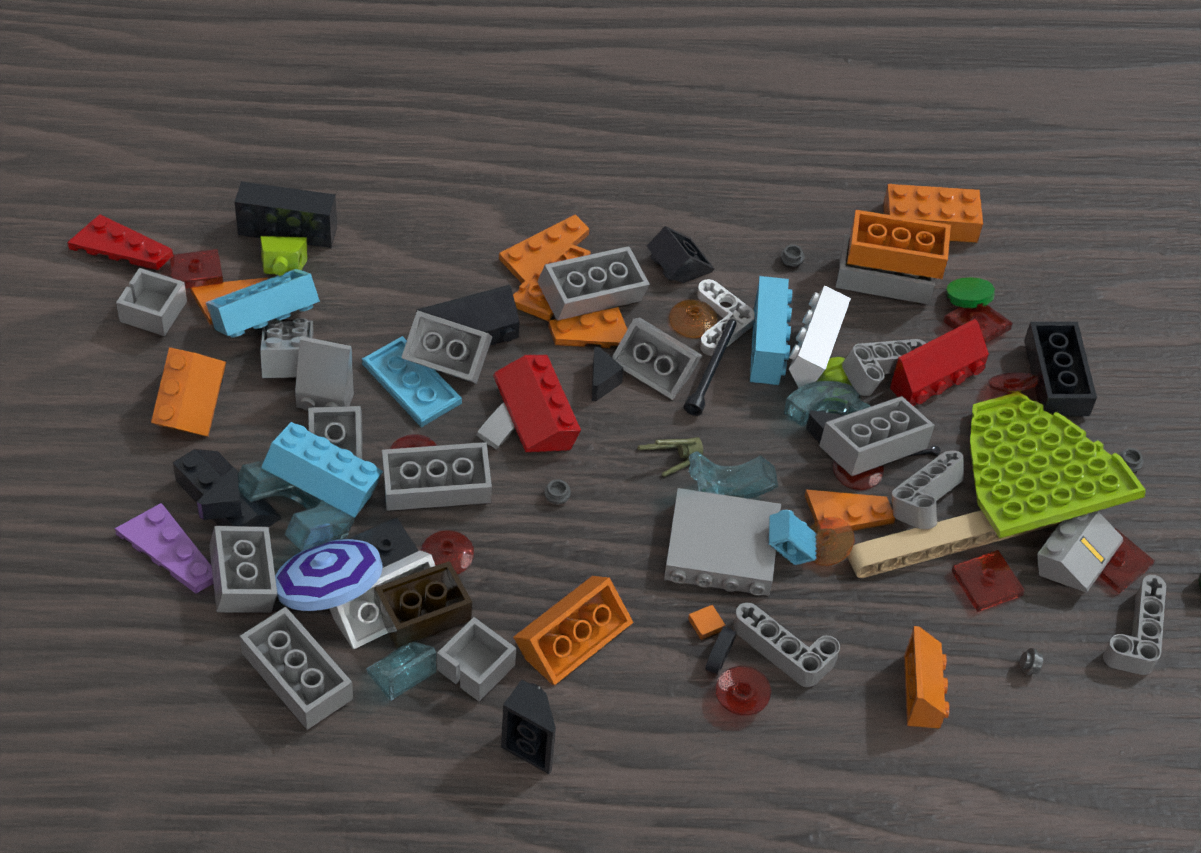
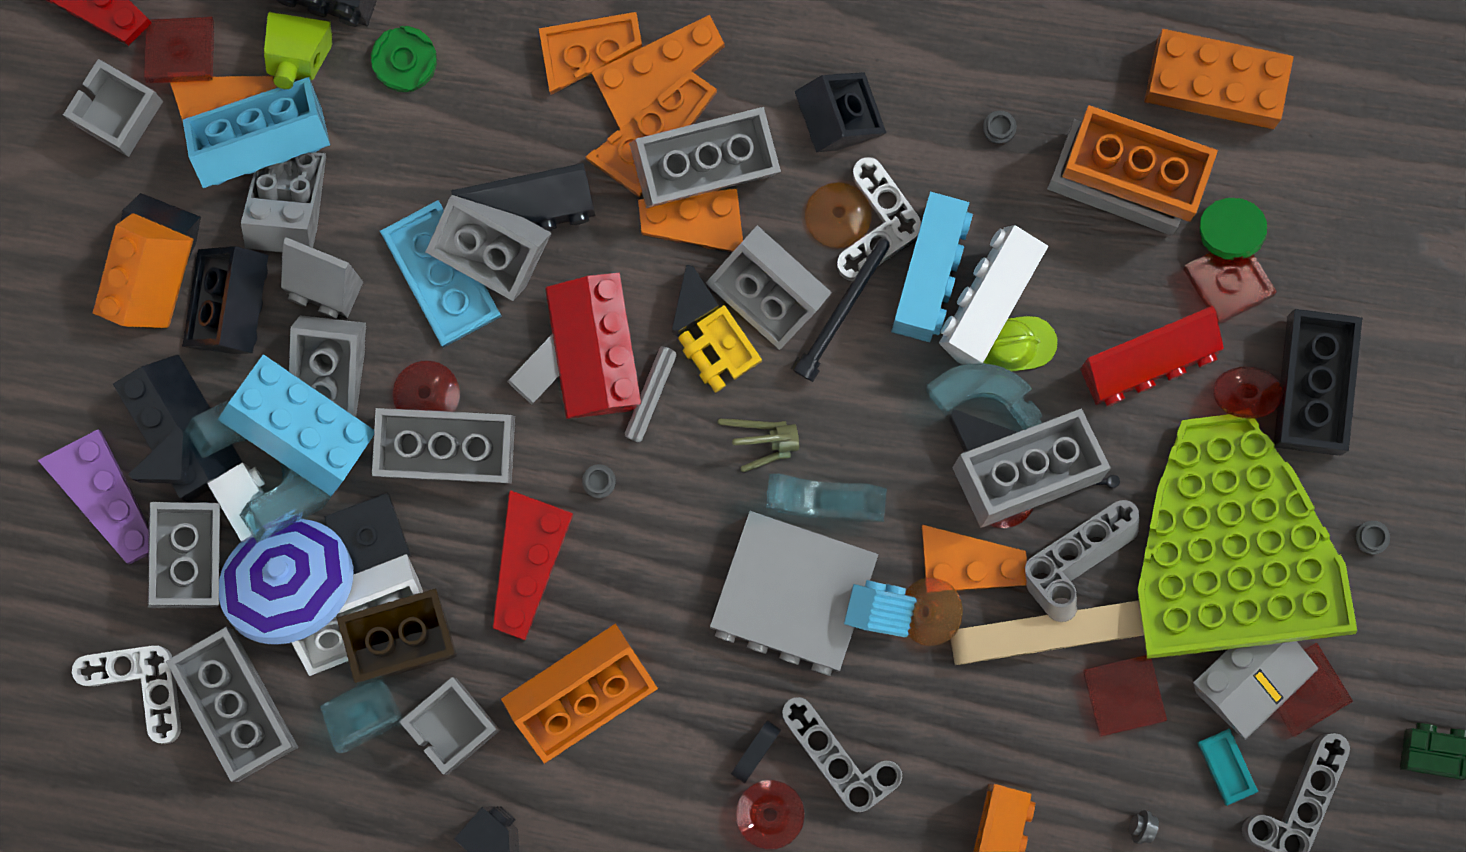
camera: 20 degrees right, 30 degrees up
(215, 662) = (139, 670): none -> white beam
(251, 410) = (225, 300): none -> black slope
(278, 522) = (234, 491): none -> white arch
(361, 261) = (404, 59): none -> green tile
(459, 555) = (462, 553): clear red dish -> none
(488, 240) = (583, 46): none -> orange wing
(514, 546) = (528, 556): none -> red wing
(582, 442) = (650, 394): none -> light grey axle
(634, 395) = (729, 344): none -> yellow plate
(706, 622) = (749, 703): orange tile -> none
(870, 361) = (1079, 342): light grey beam -> none
(1079, 617) = (1227, 767): none -> teal tile

